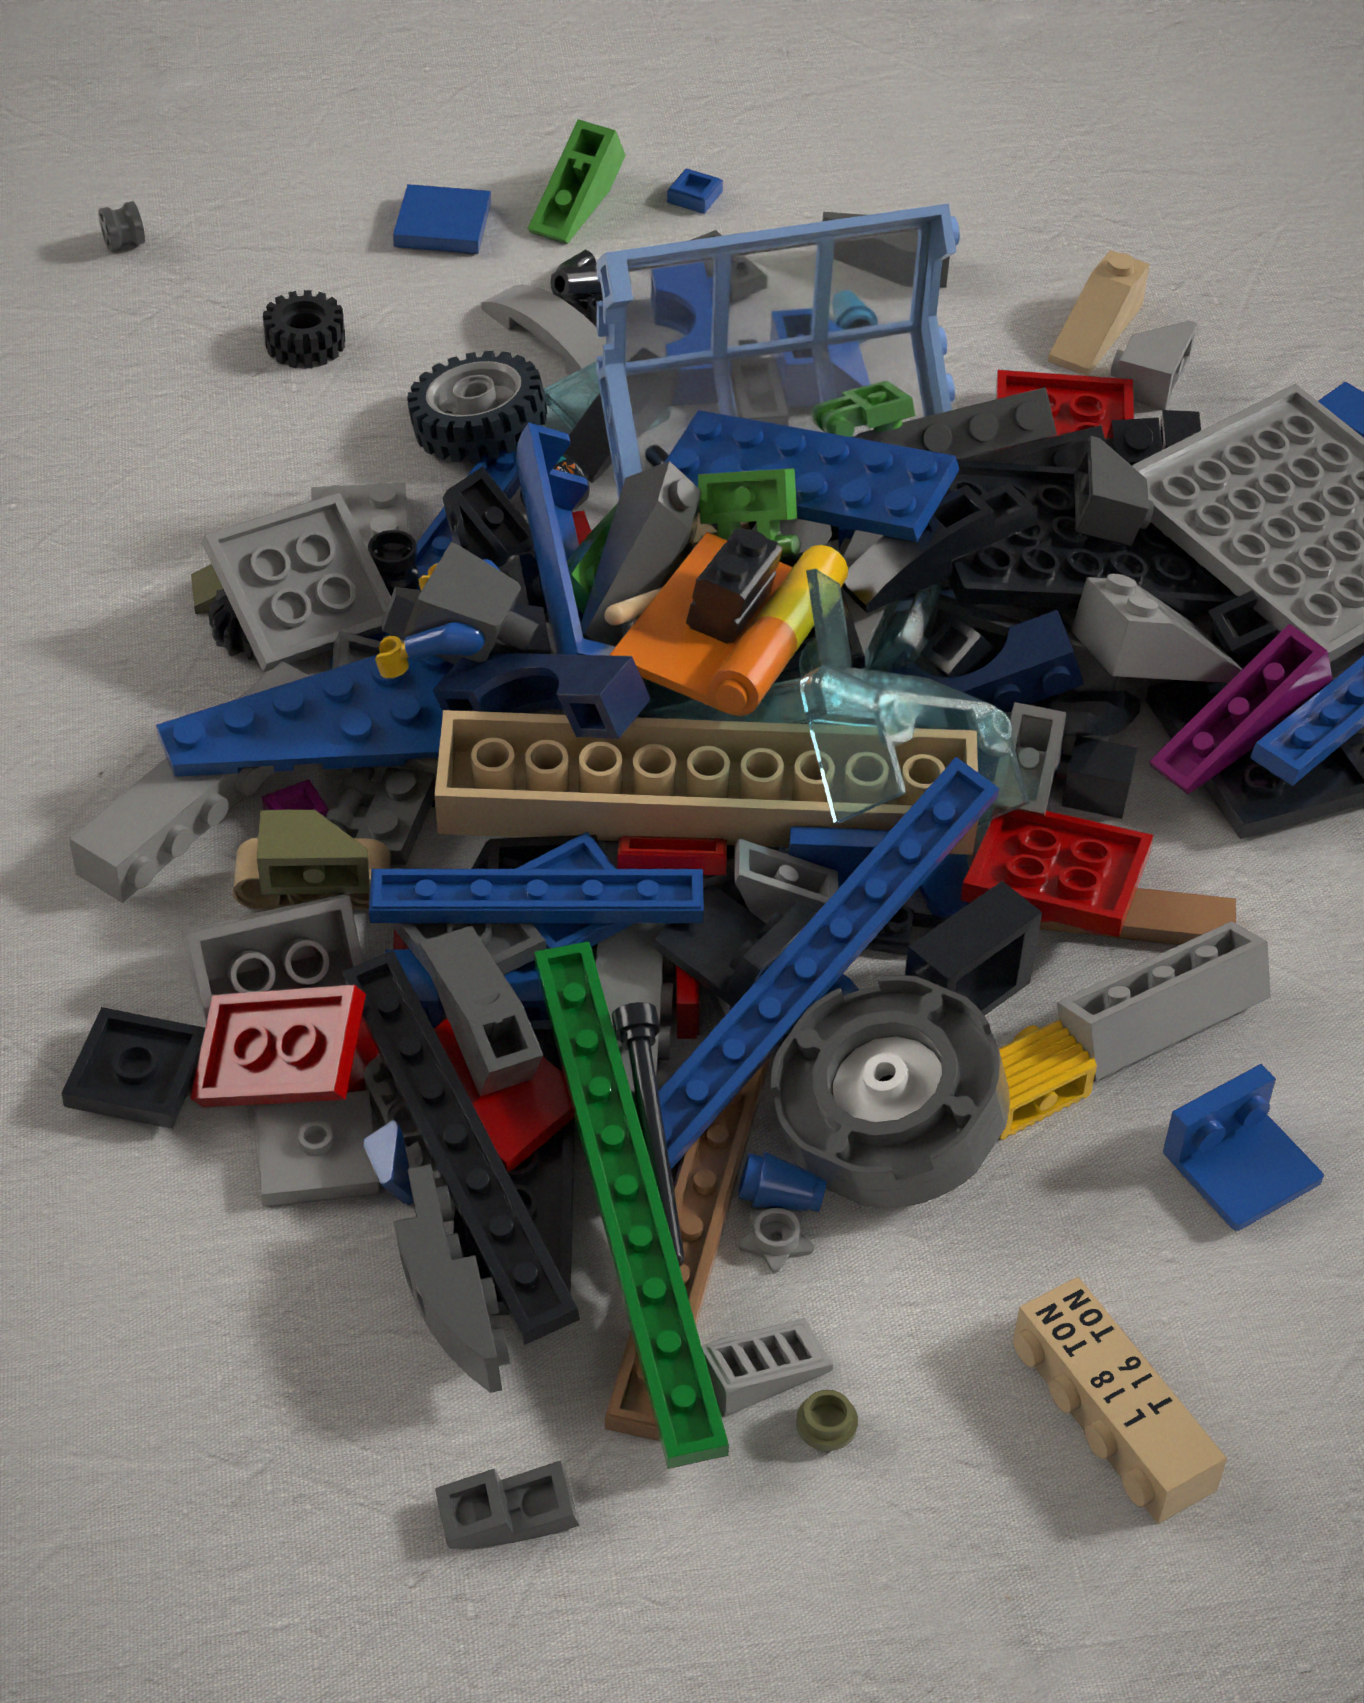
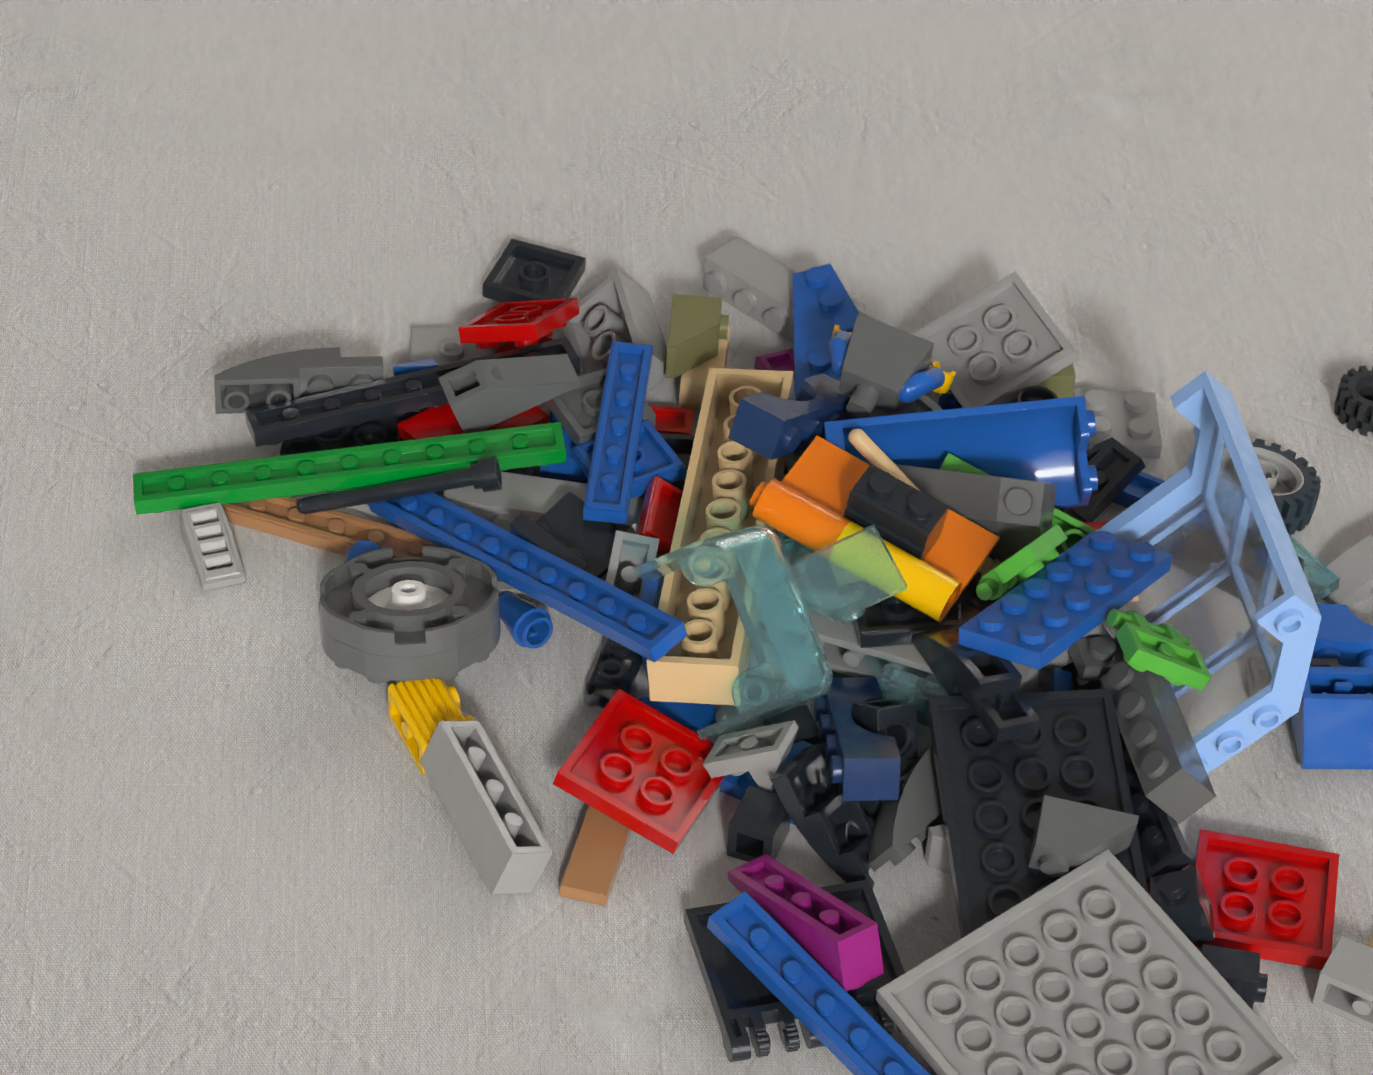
camera: 95 degrees right, 5 degrees down
(505, 1511) = (136, 421): dark grey slope -> none
(776, 1222) = (314, 573): light grey plate -> none
(827, 1420) = (155, 572): olive plate -> none
(981, 949) = (535, 685): black window -> none
(1118, 1400) = (124, 717): tan brick -> none
(1143, 636) = (902, 861): light grey slope -> none
(1237, 630) = (922, 937): black window -> none
(1238, 1152) = (330, 836): blue bracket -> none

